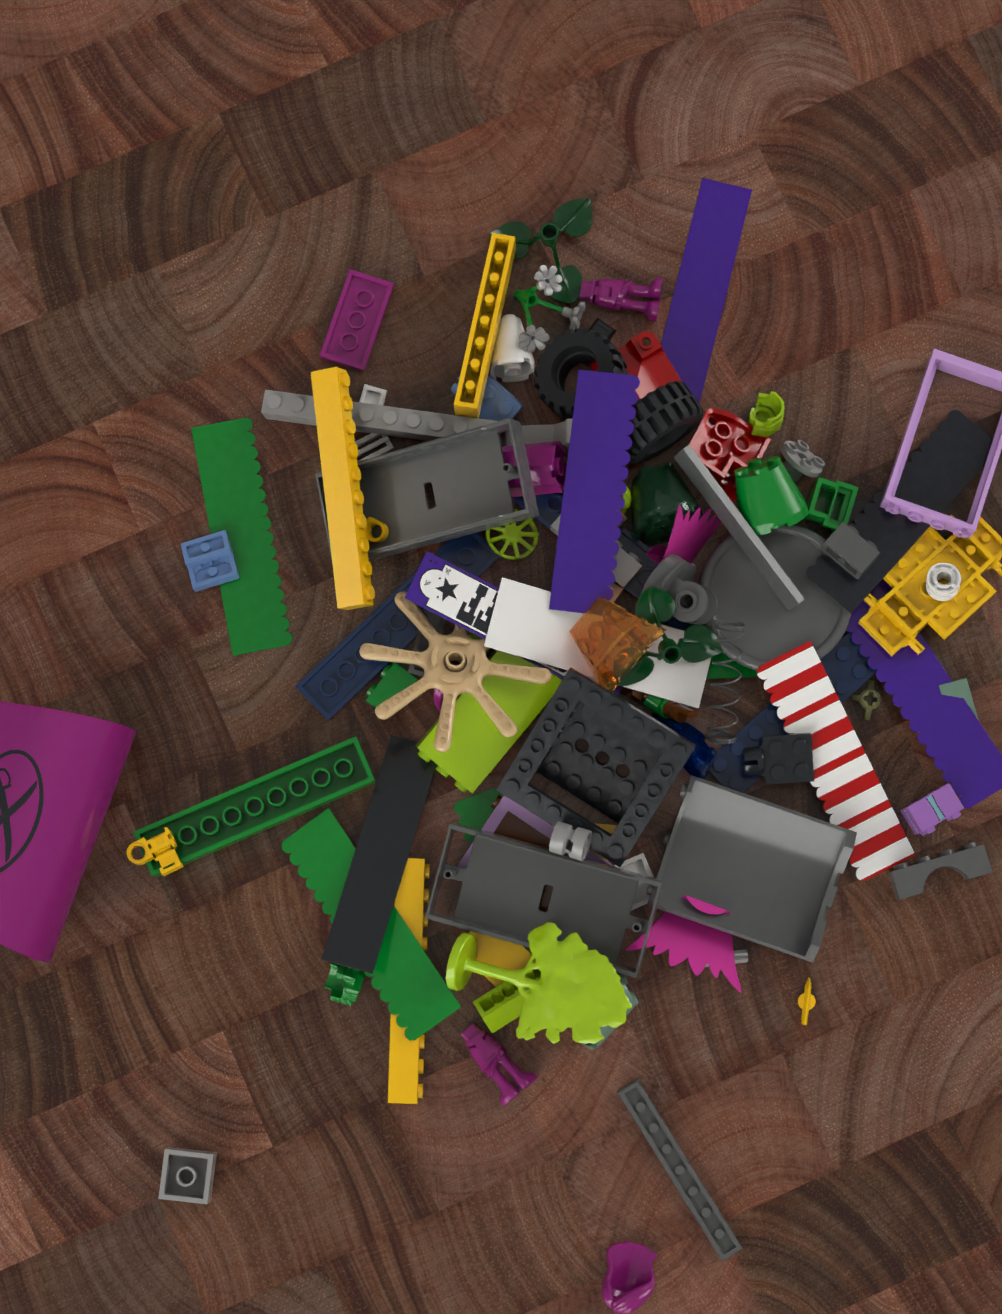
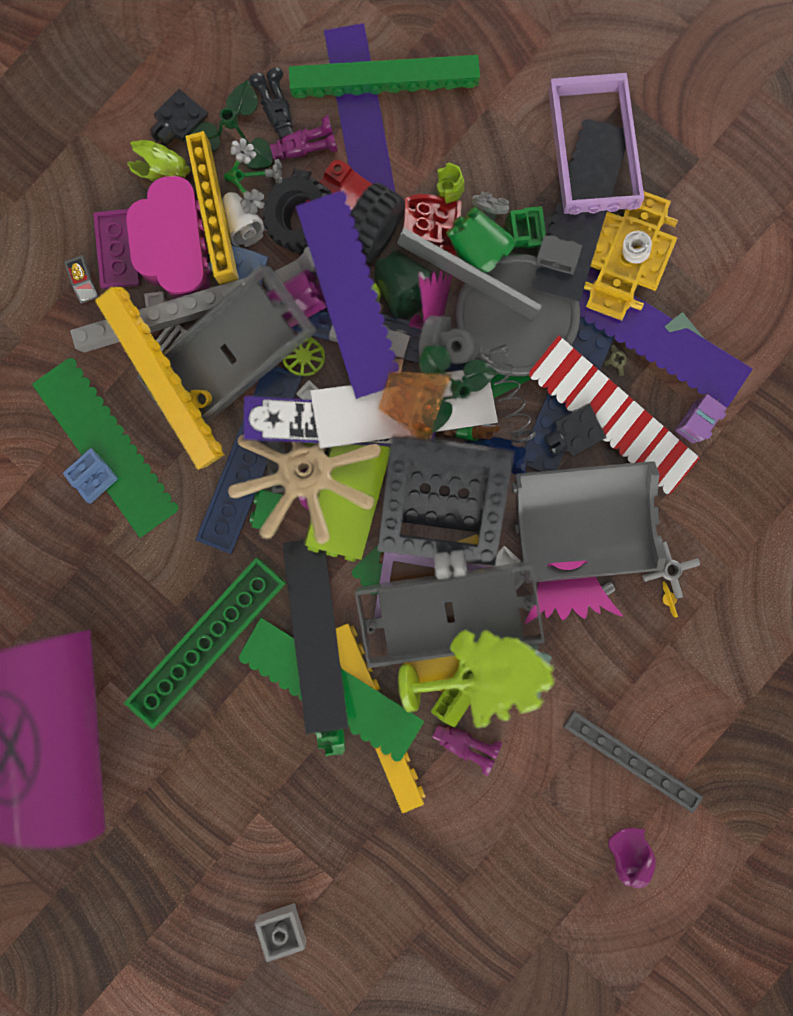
camera: 30 degrees left, 5 degrees up
(161, 847) = (148, 708): yellow piece -> none
(302, 336) = (81, 279): none -> slope
(422, 338) = (169, 238): none -> dark pink brick
(449, 248) = (160, 161): none -> lime head
(491, 205) = (177, 118): none -> black plate
(495, 575) = (304, 393): none -> white tile
(607, 245) = (276, 109): none -> black piece
(746, 261) = (384, 76): none -> green brick
(833, 969) = (679, 567): none -> light grey bar
(911, 879) = (706, 477): dark grey arch -> none

